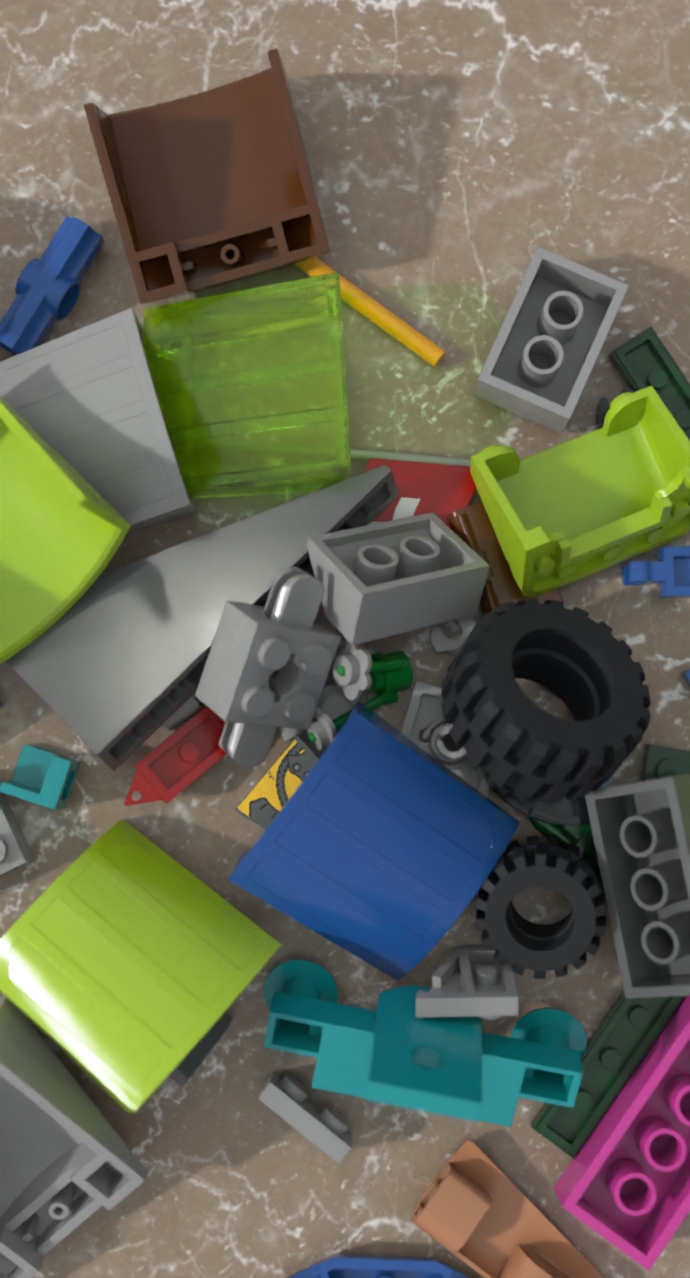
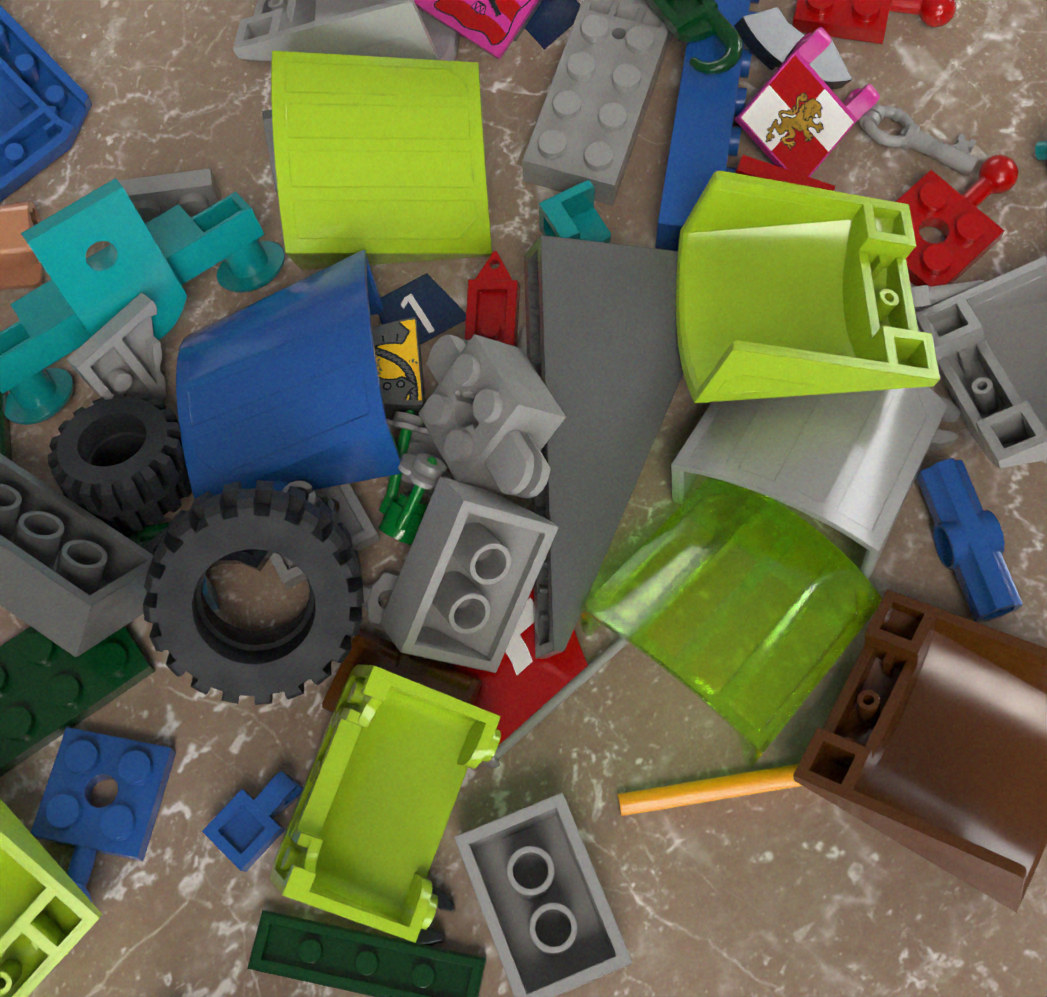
camera: 130 degrees right, 15 degrees down
(216, 831) = (427, 302): none -> dark blue sticker

